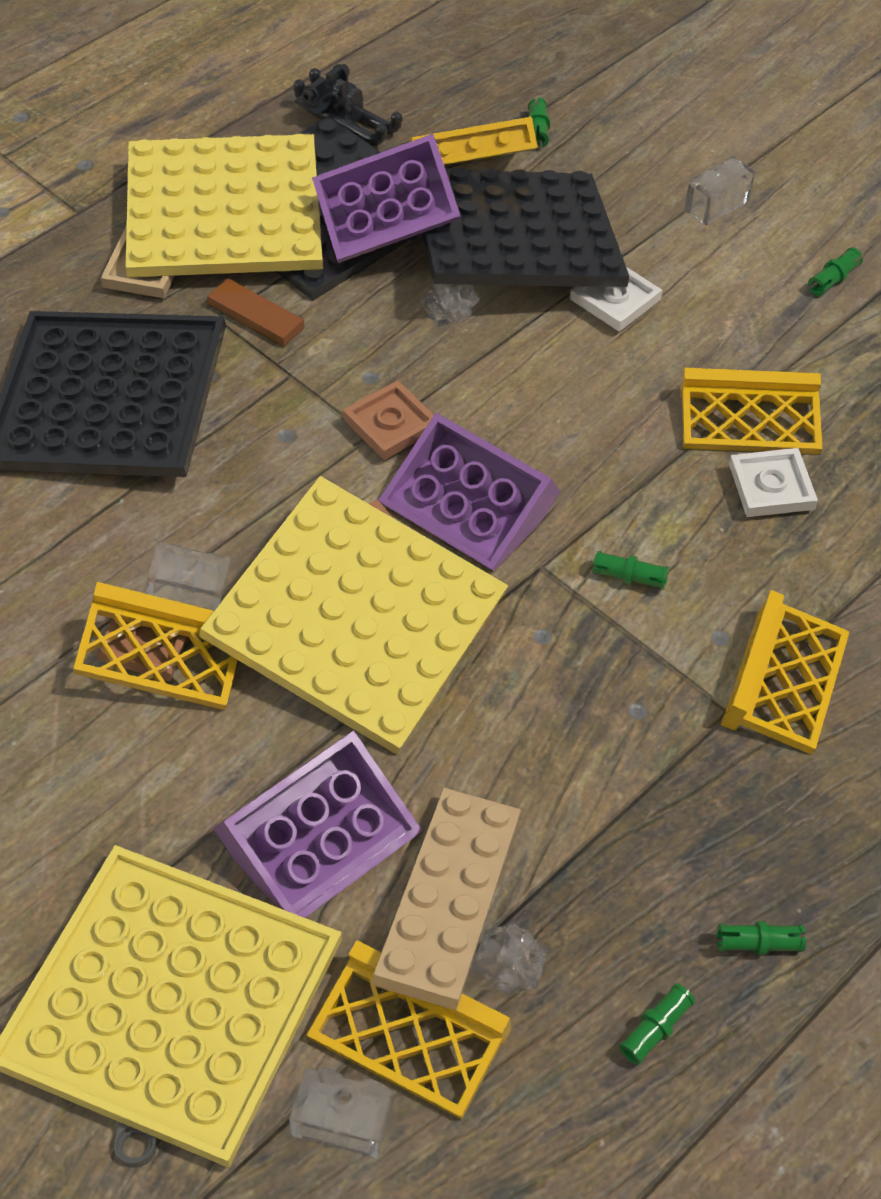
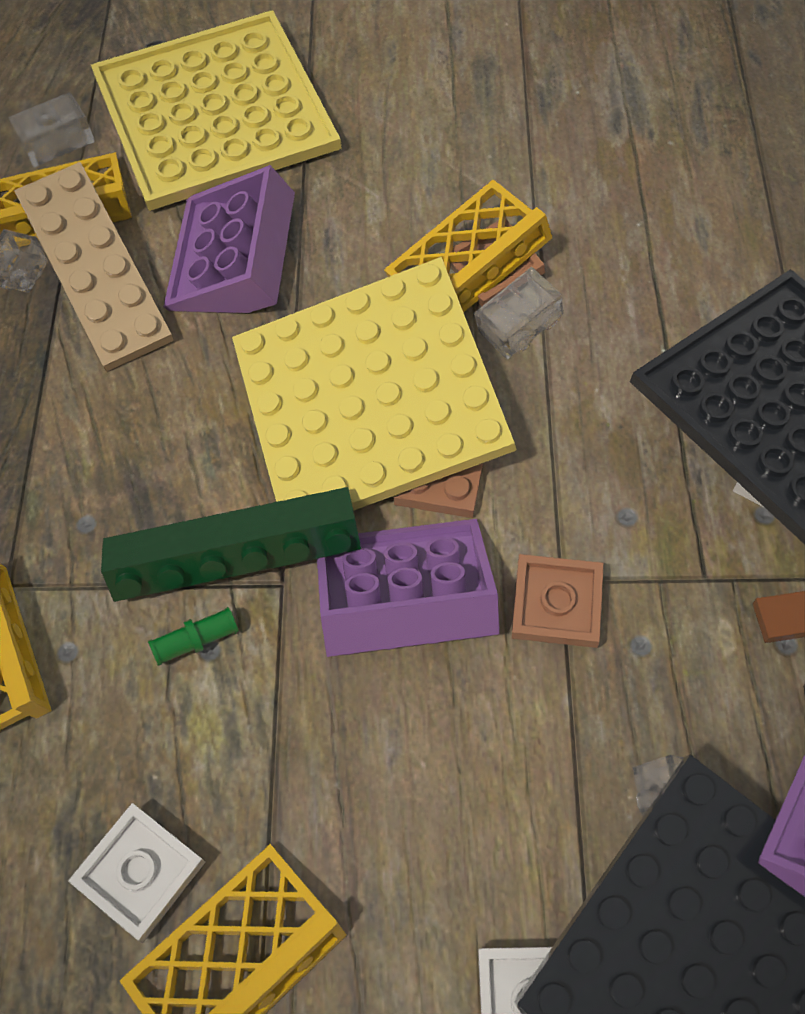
camera: 140 degrees right, 10 degrees up
(558, 589) = (229, 544): none -> dark green brick

